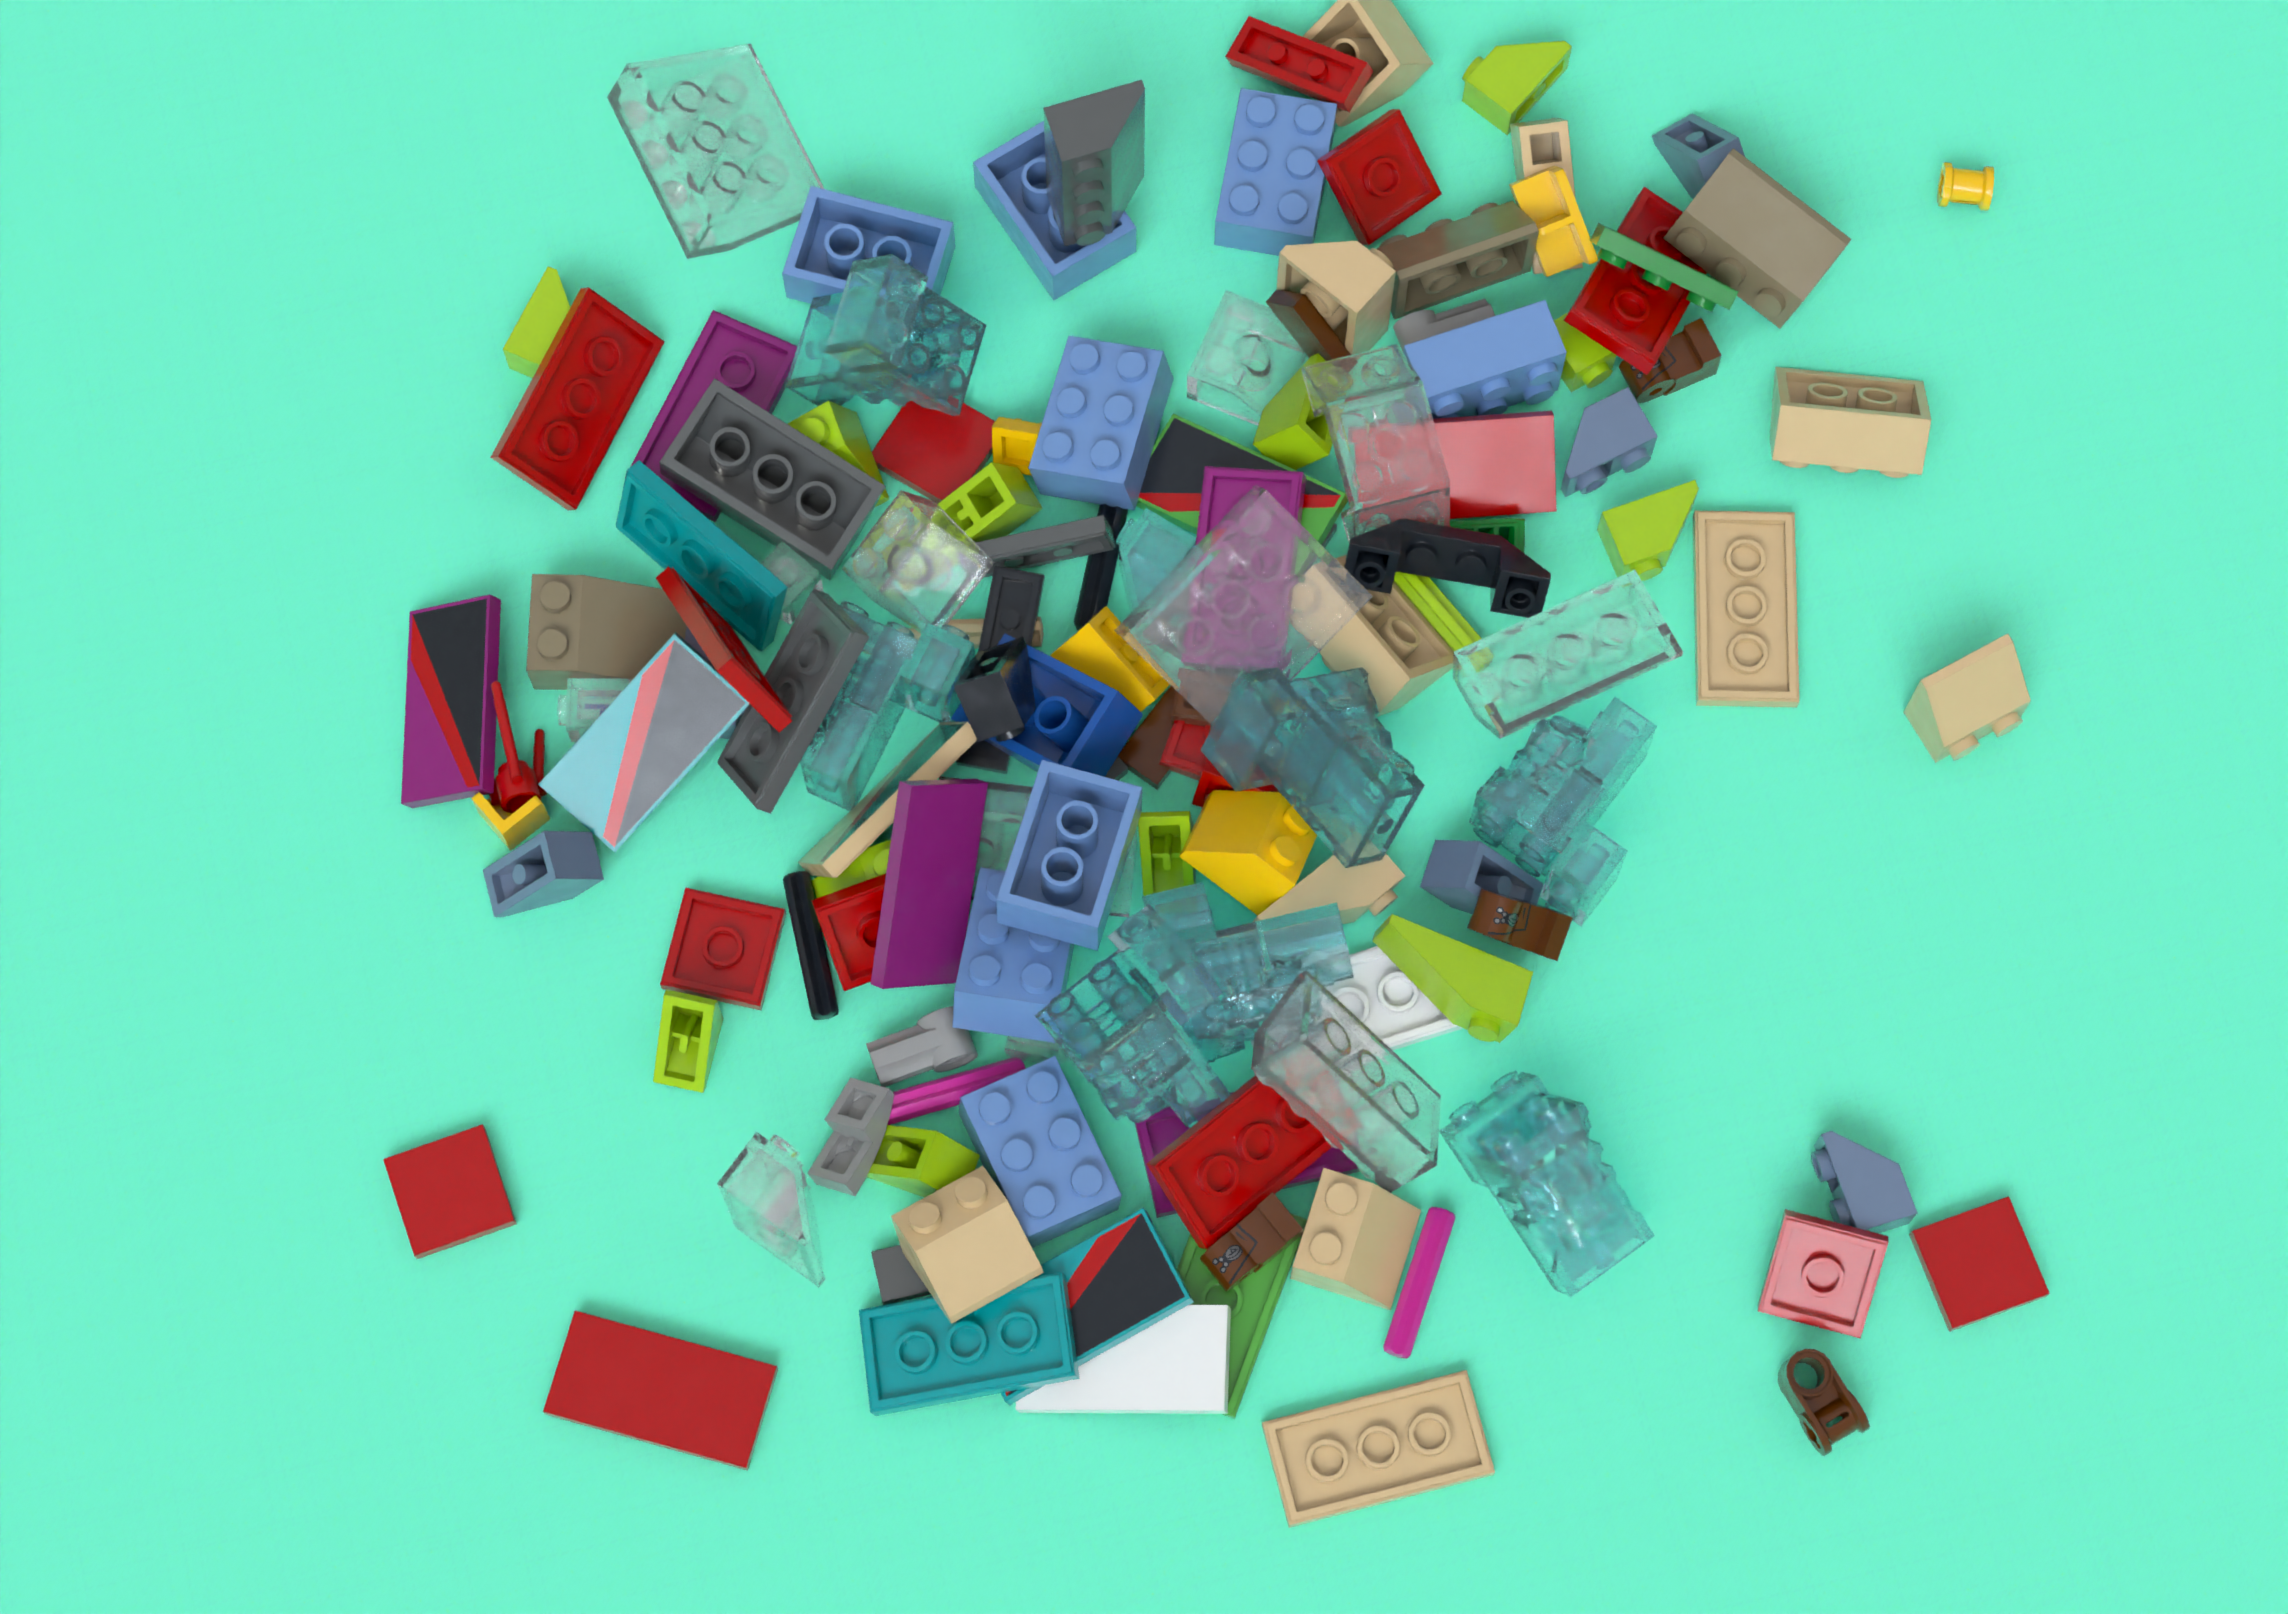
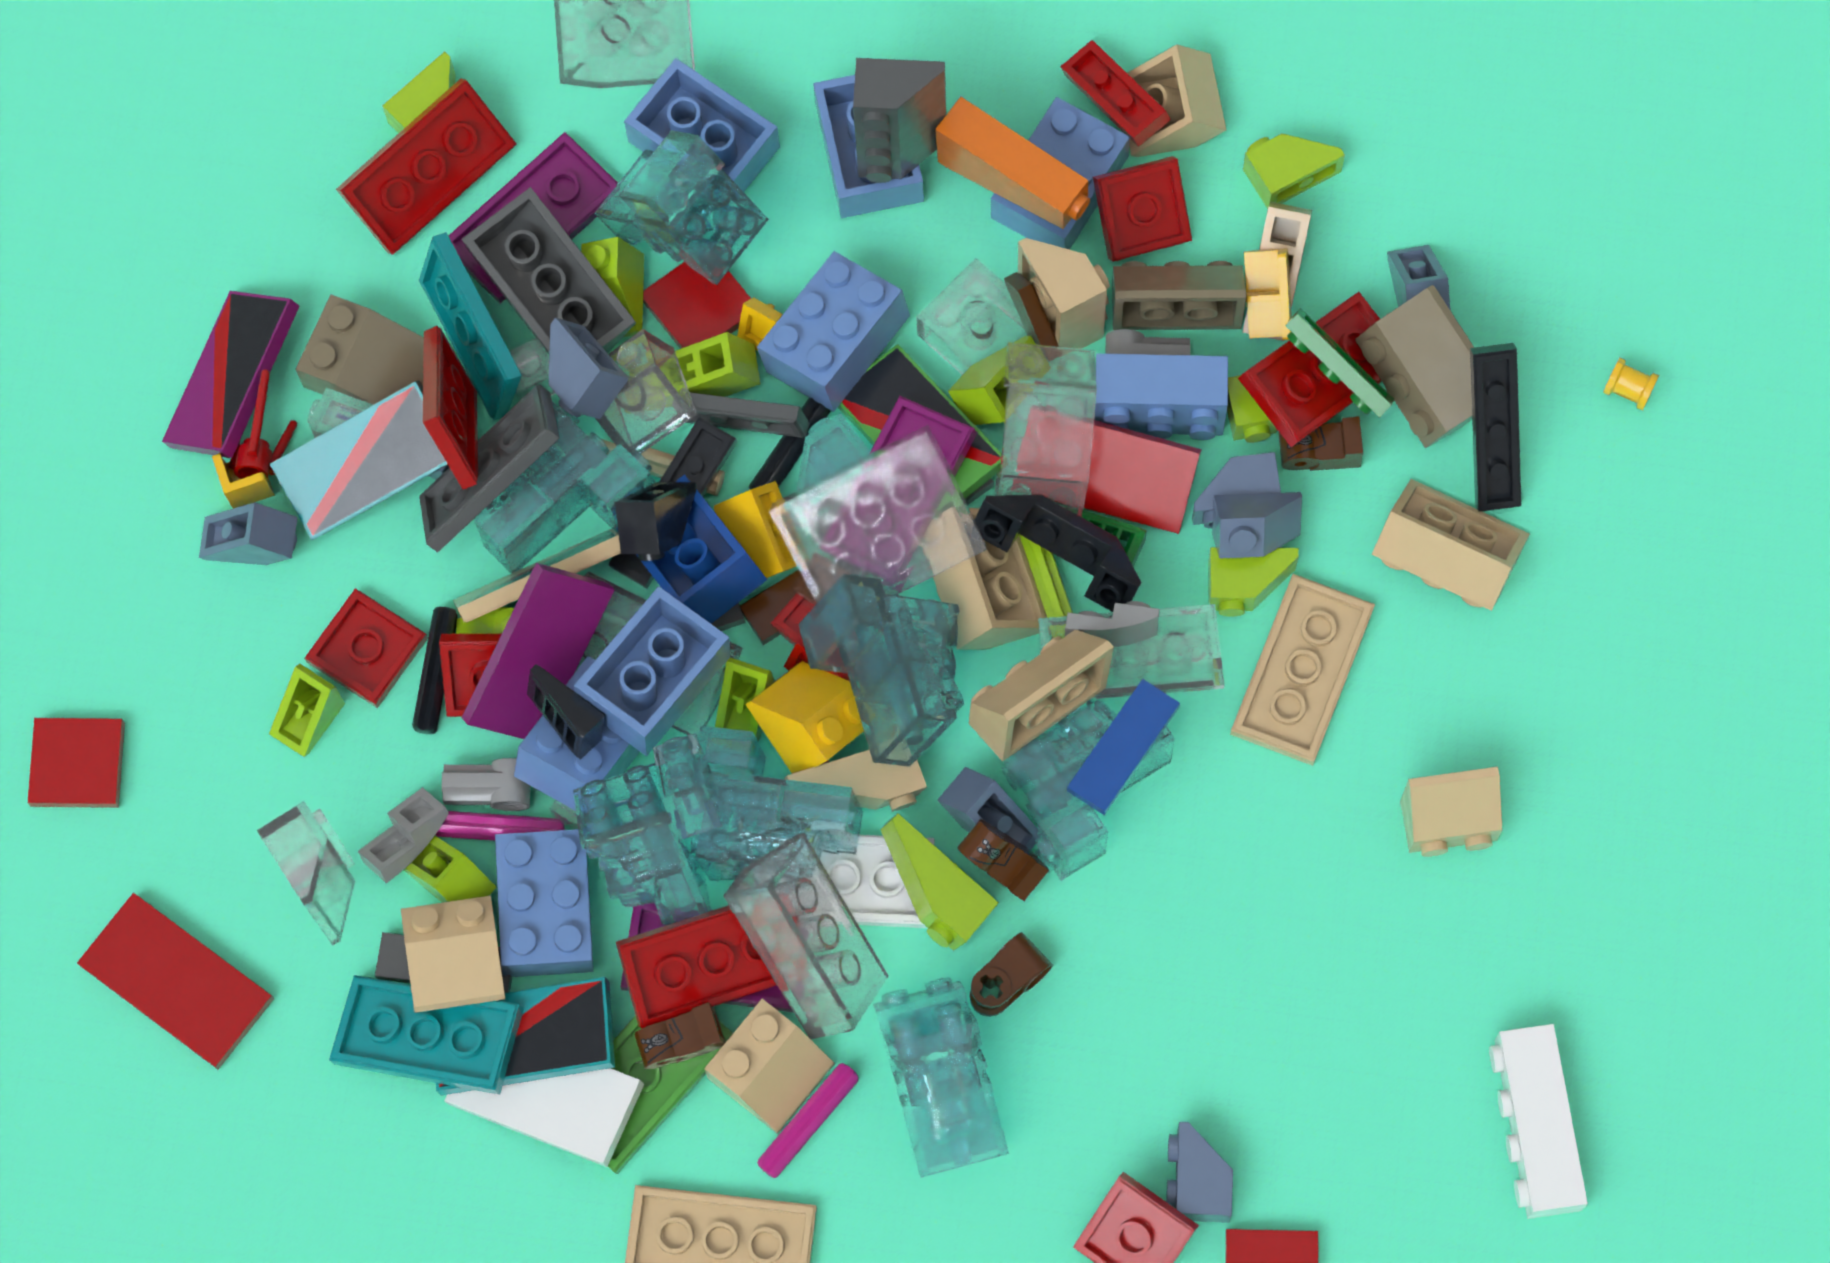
camera: 25 degrees right, 0 degrees up
(854, 559) = (582, 370): none -> sand blue slope
(992, 932) = (567, 712): none -> black slope
(1230, 176) = (1009, 165): none -> orange slope
(1497, 725) = (1041, 692): none -> tan slope
(1556, 623) = (1129, 623): none -> light grey slope
(1572, 1043) = (1013, 970): none -> reddish brown piece
(1608, 754) = (1123, 747): none -> blue tile
(1638, 469) = (1255, 523): none -> sand blue slope
(1853, 277) = (1495, 426): none -> black tile
(2190, 994) = (1539, 1121): none -> white brick

